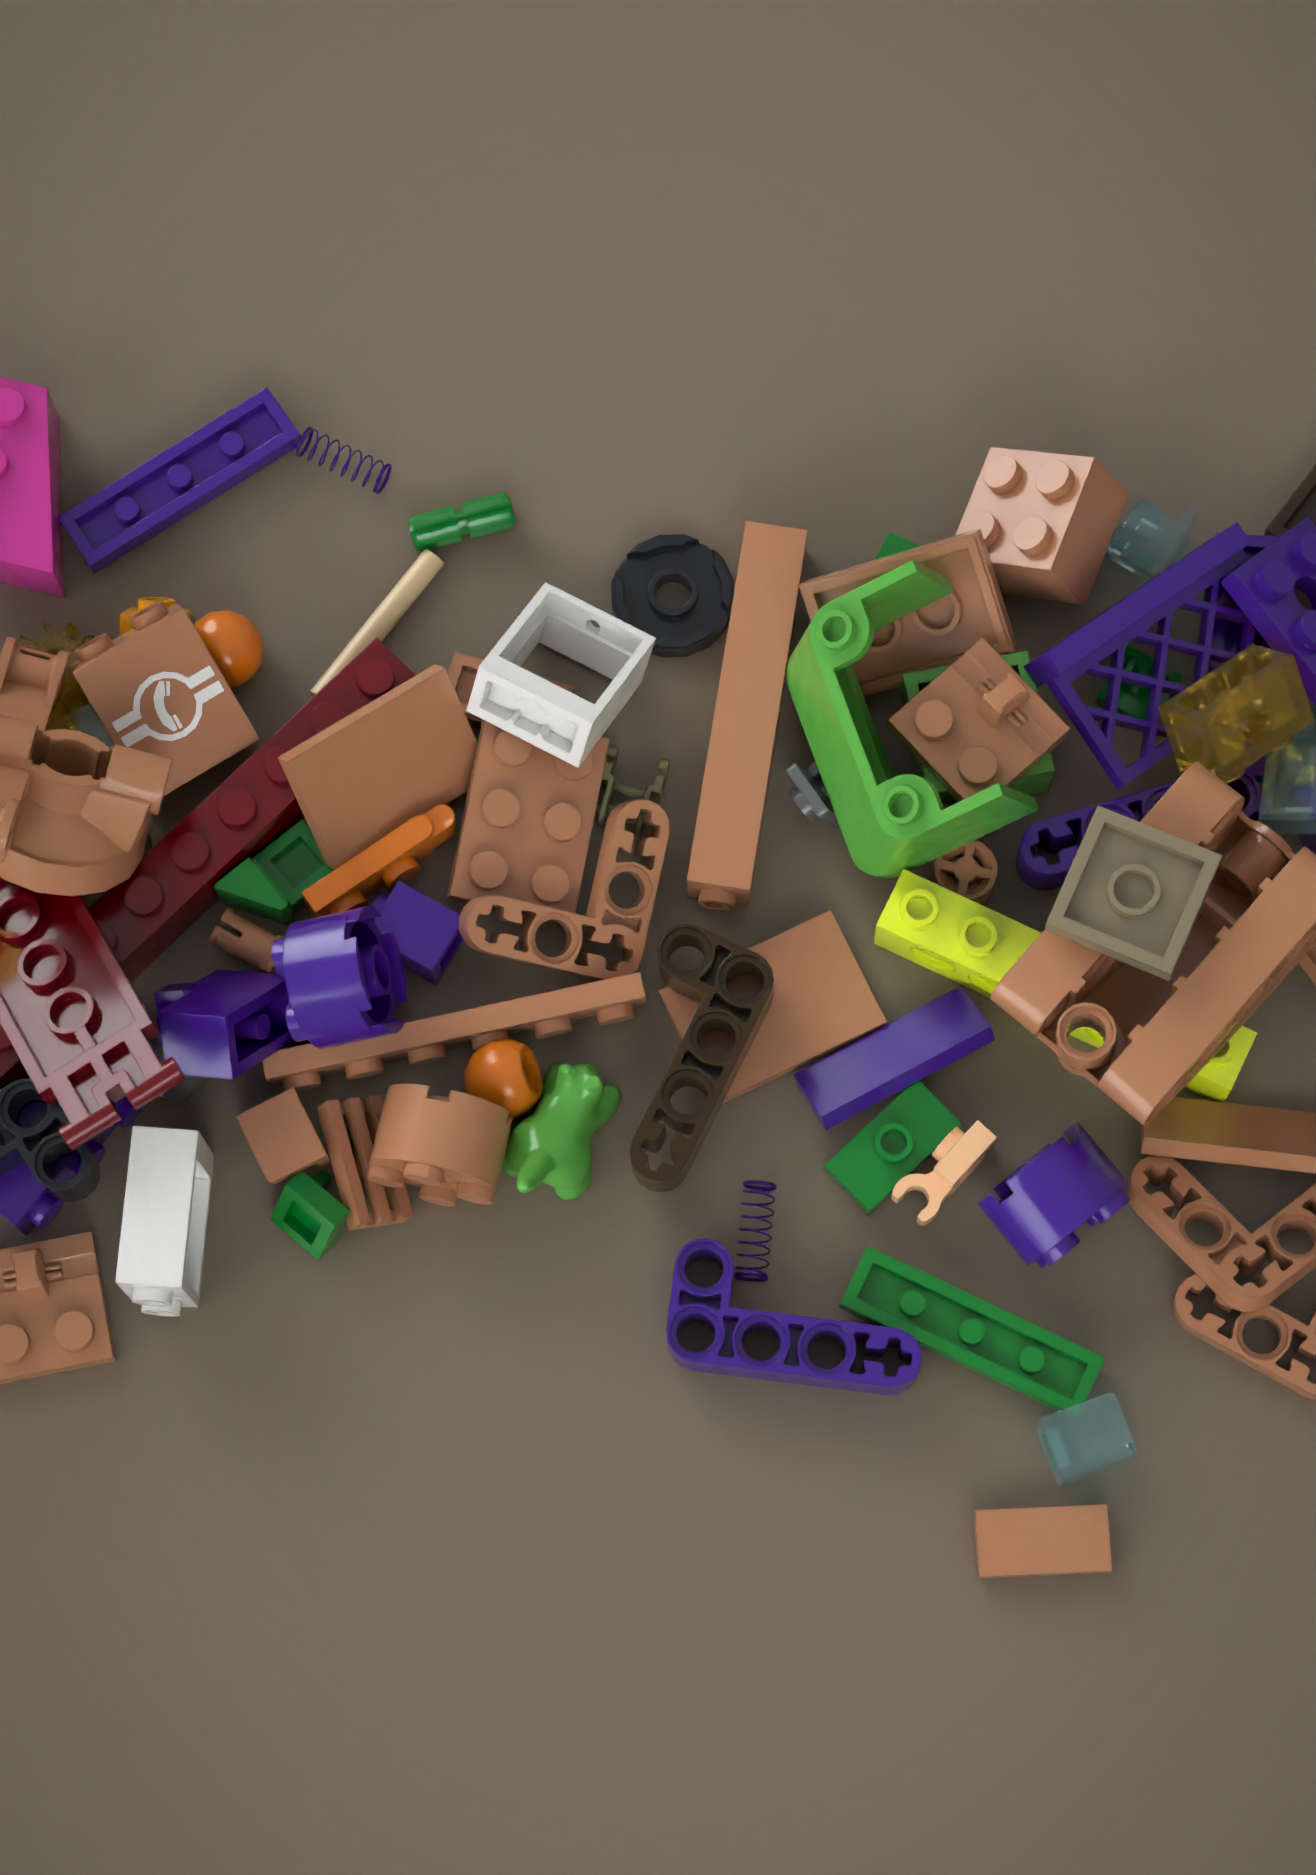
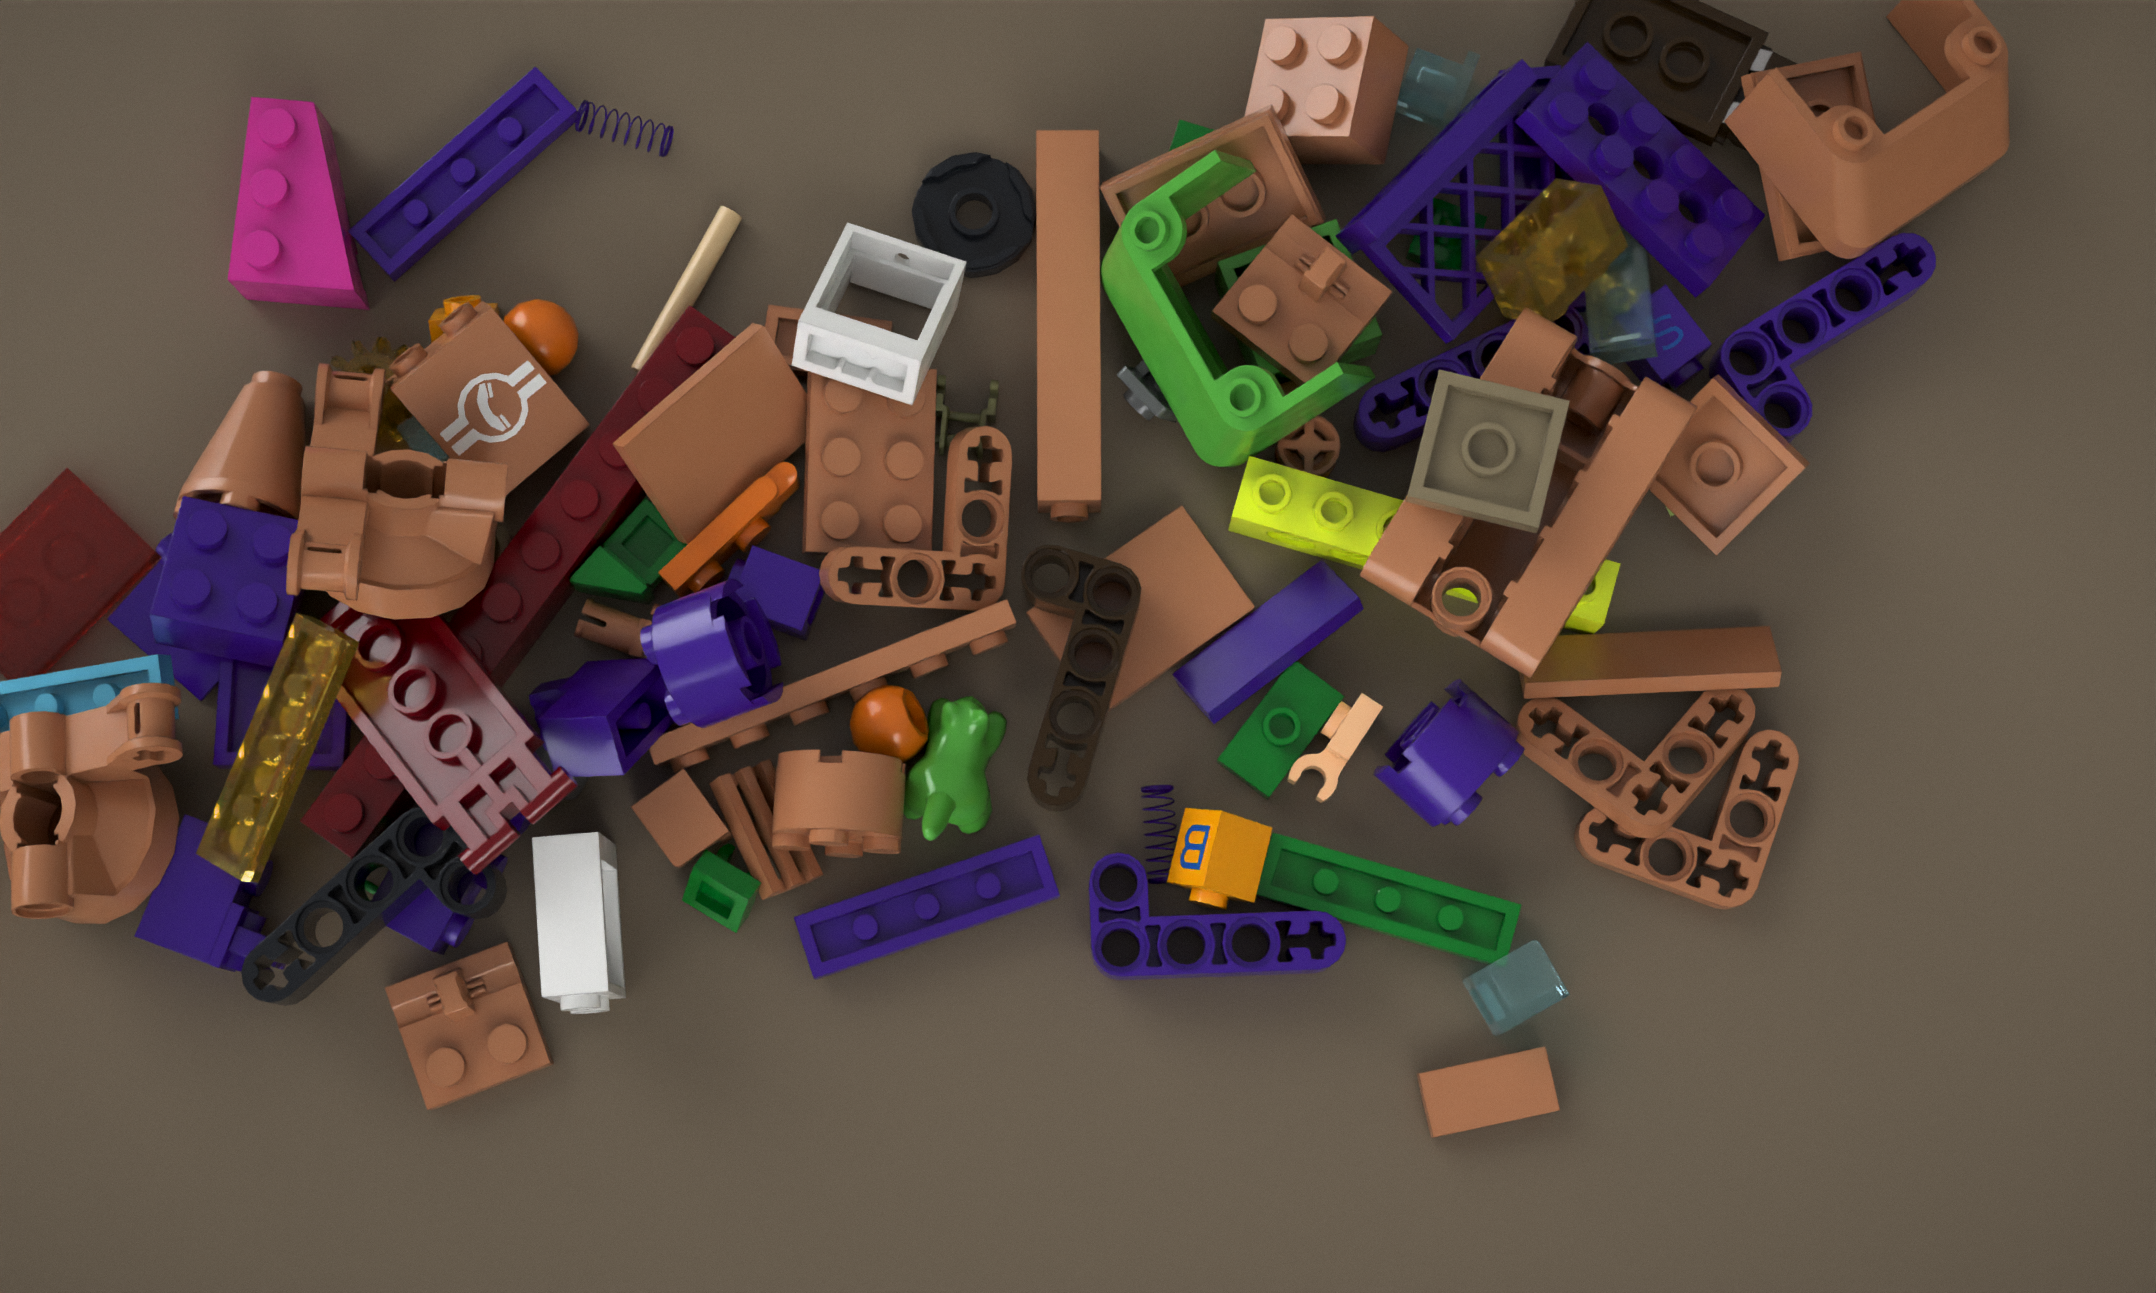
camera: 15 degrees left, 5 degrees up
(476, 518) = (765, 167): green piece -> none
(510, 1264) = (926, 907): none -> dark purple plate
(809, 1261) = (1219, 857): none -> light orange brick

